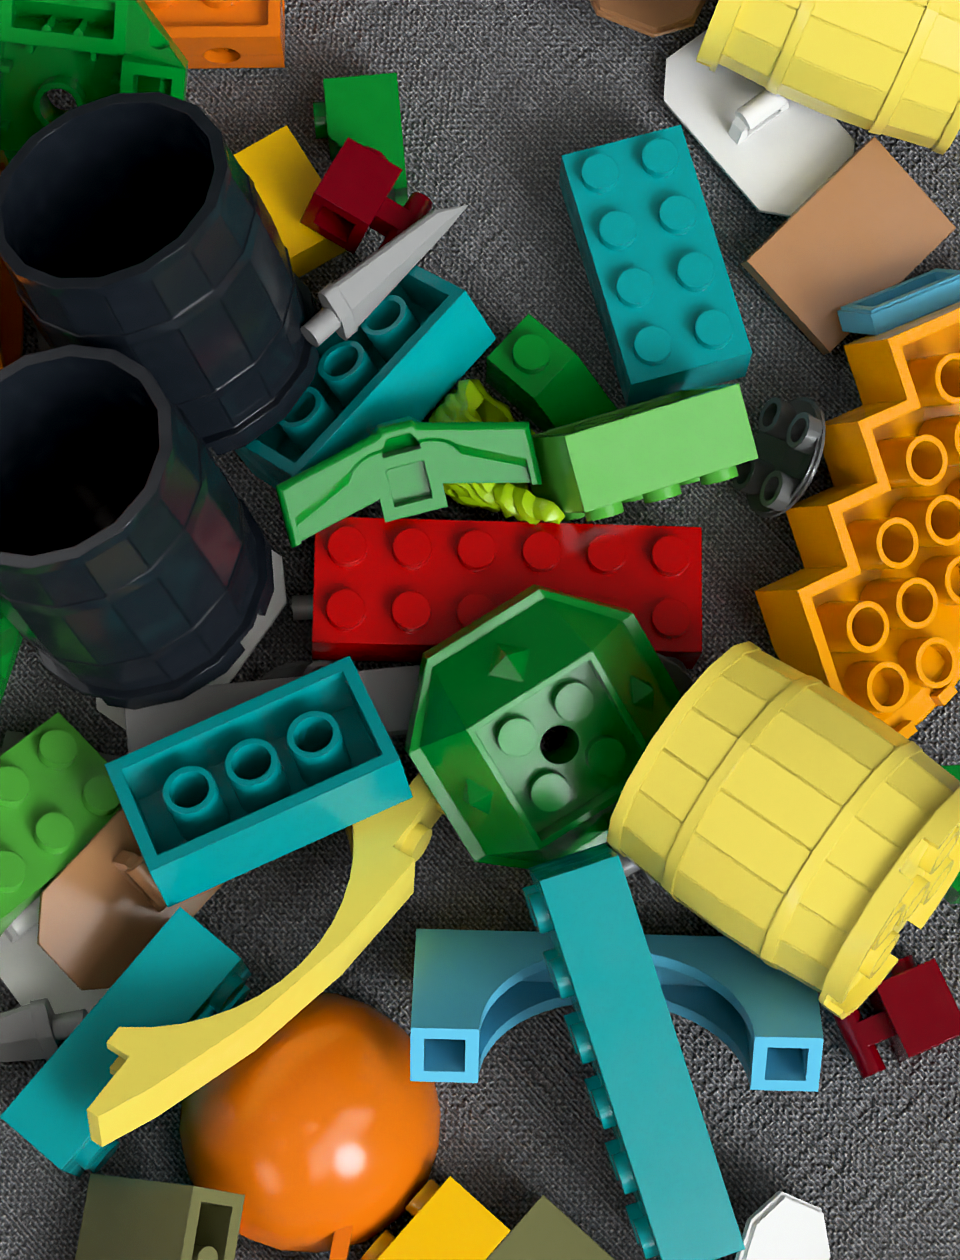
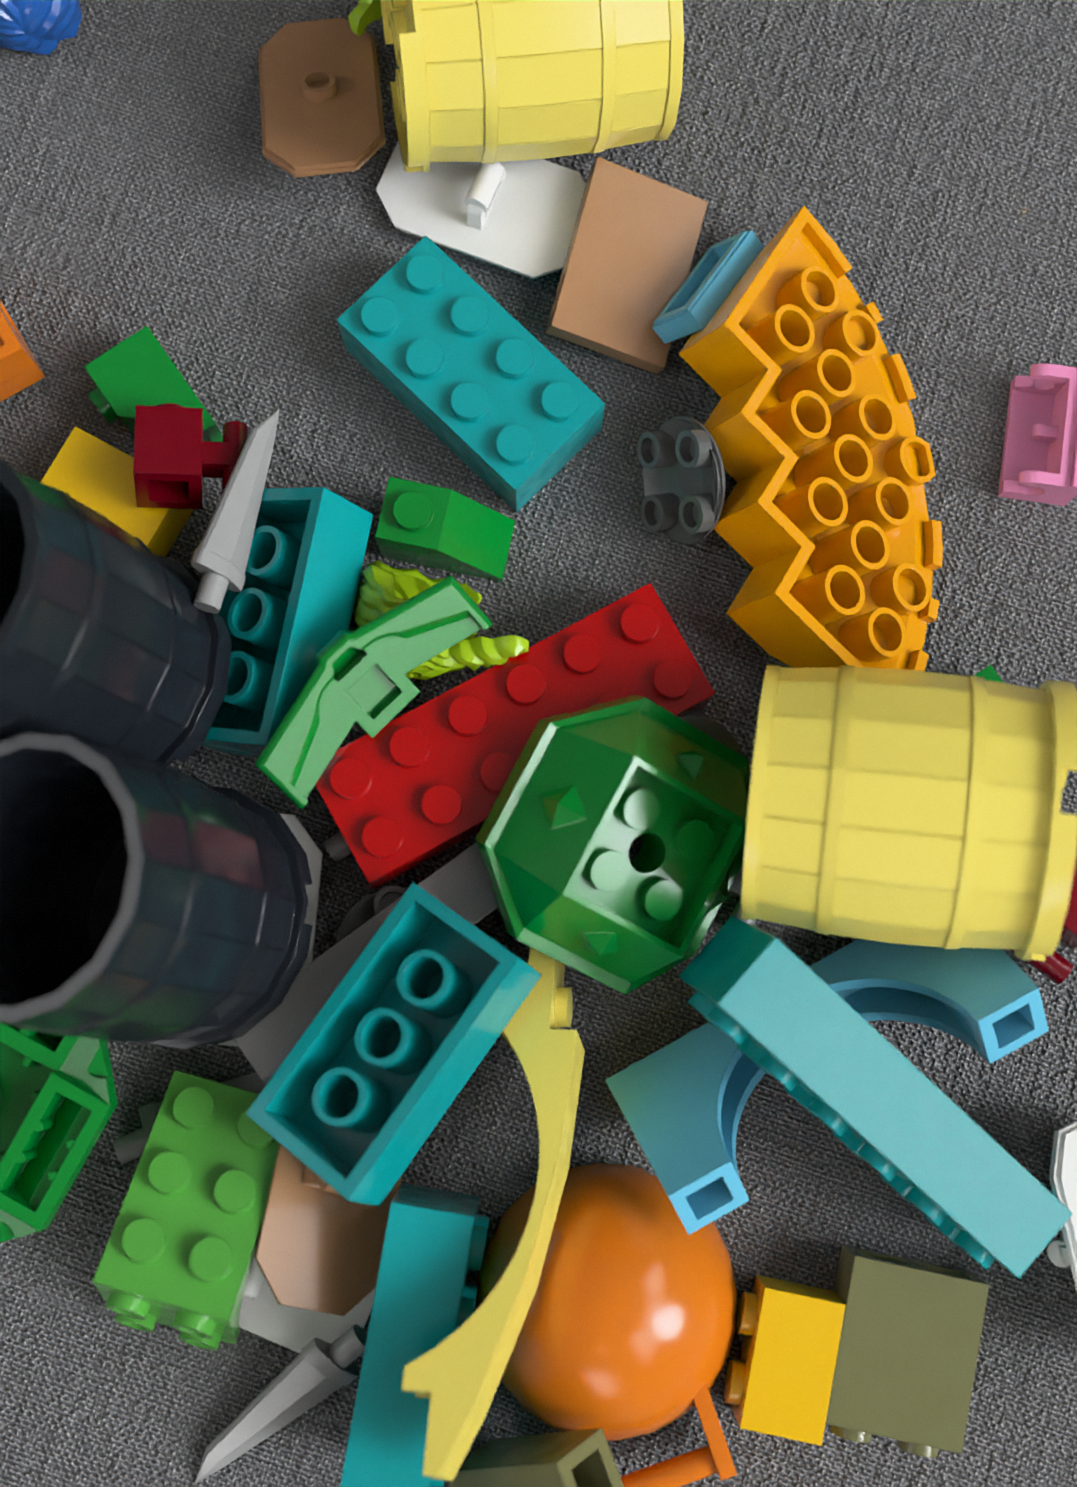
camera: 30 degrees left, 5 degrees up
(644, 451) = (564, 542): brick -> none

